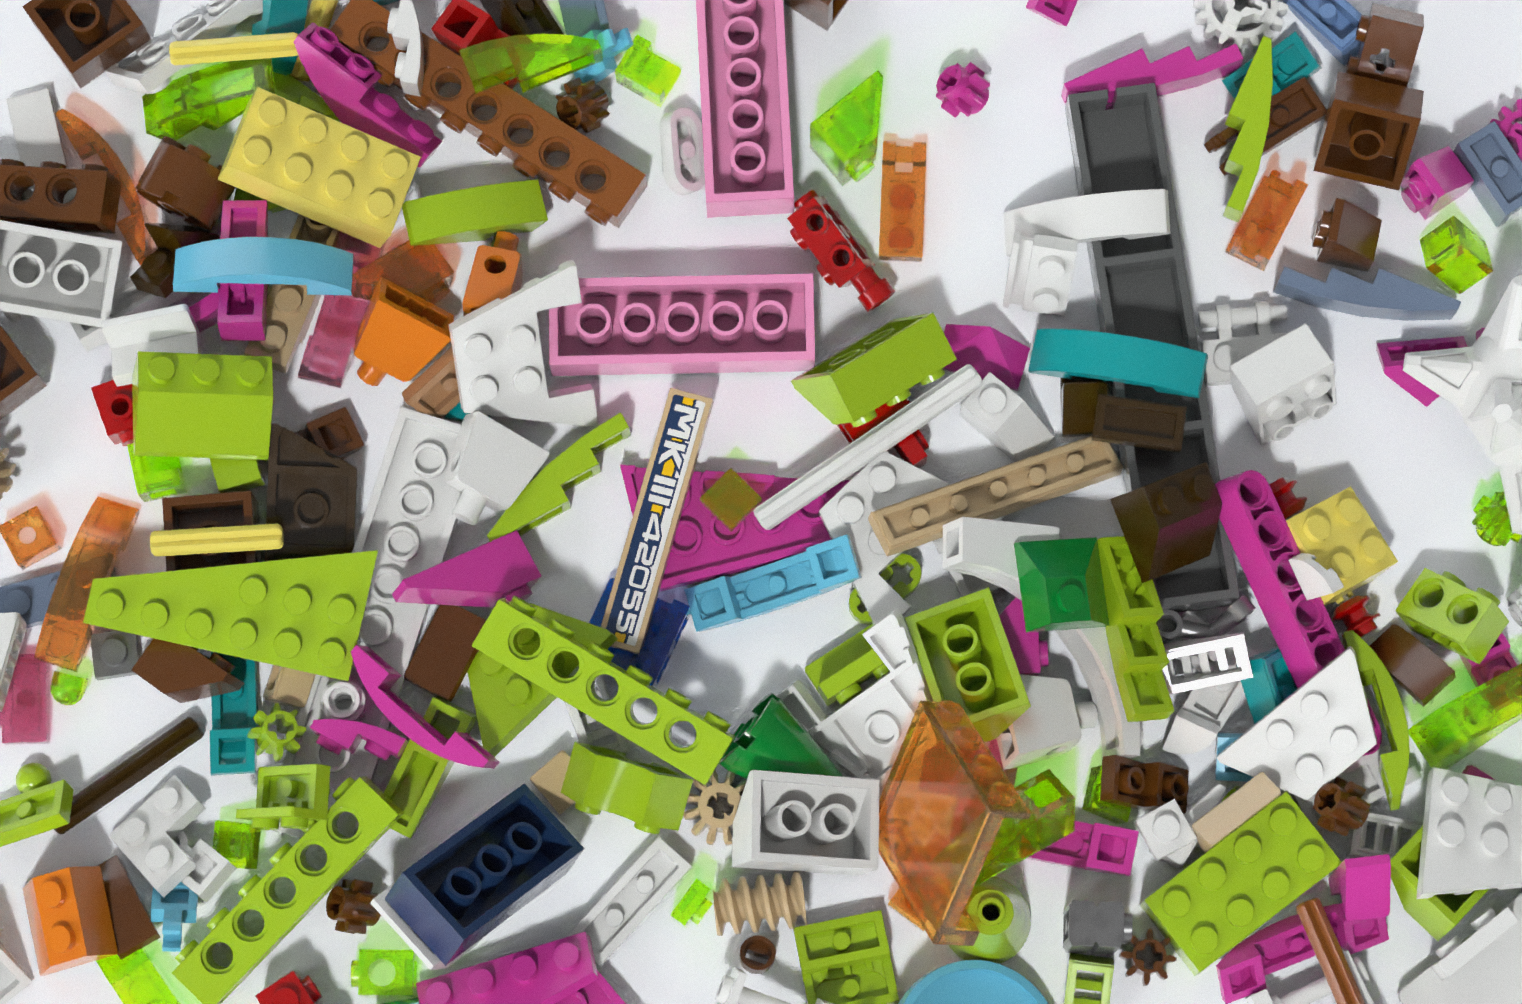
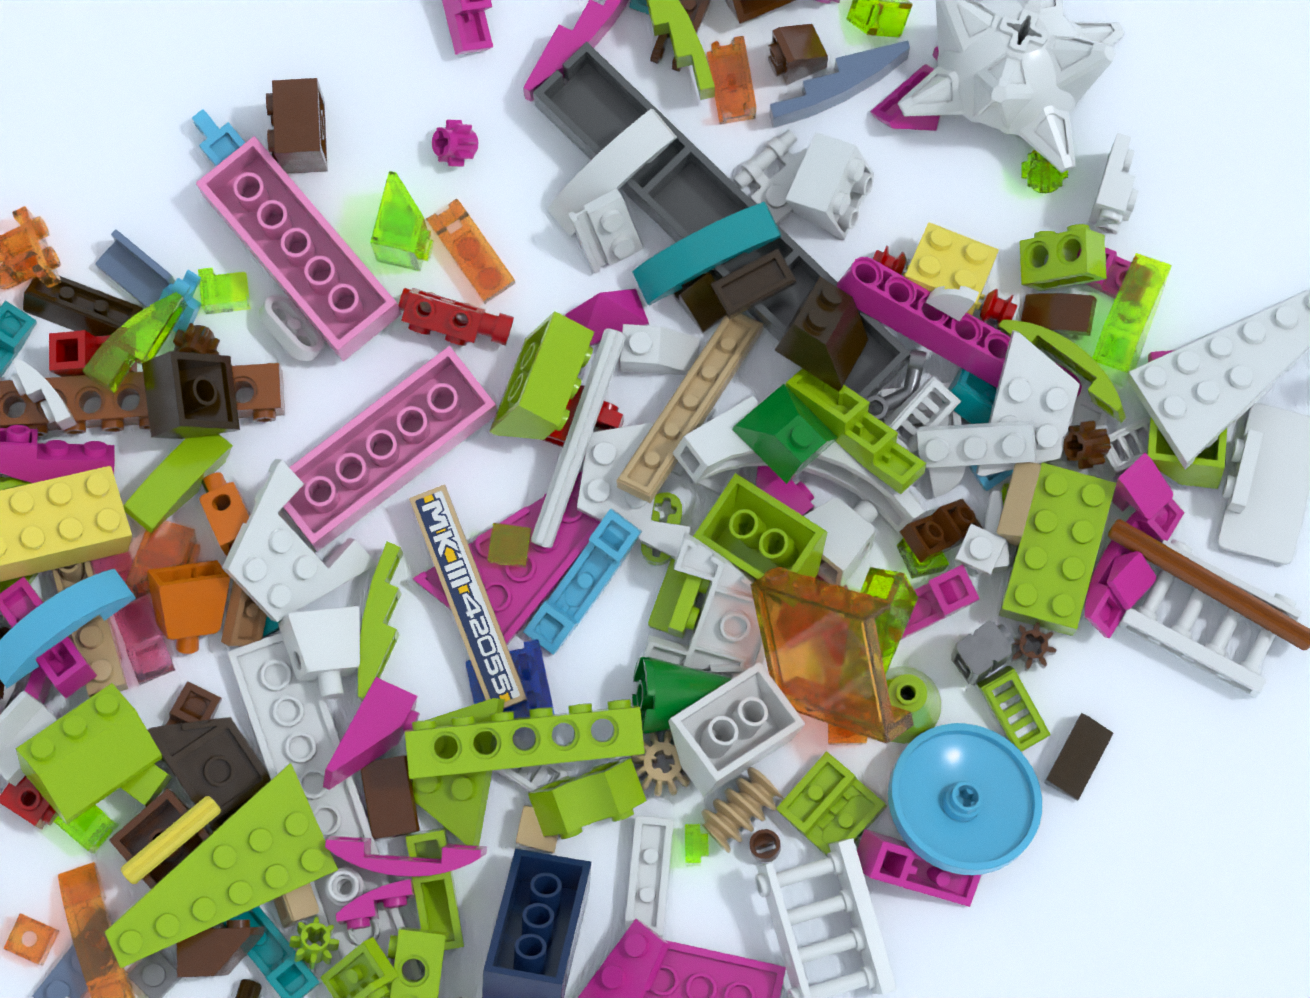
camera: 35 degrees left, 0 degrees up
(541, 145) = (190, 395): none -> dark brown slope
(1236, 728) = (977, 444): none -> white plate
(1287, 962) = (1130, 578): none -> dark pink slope

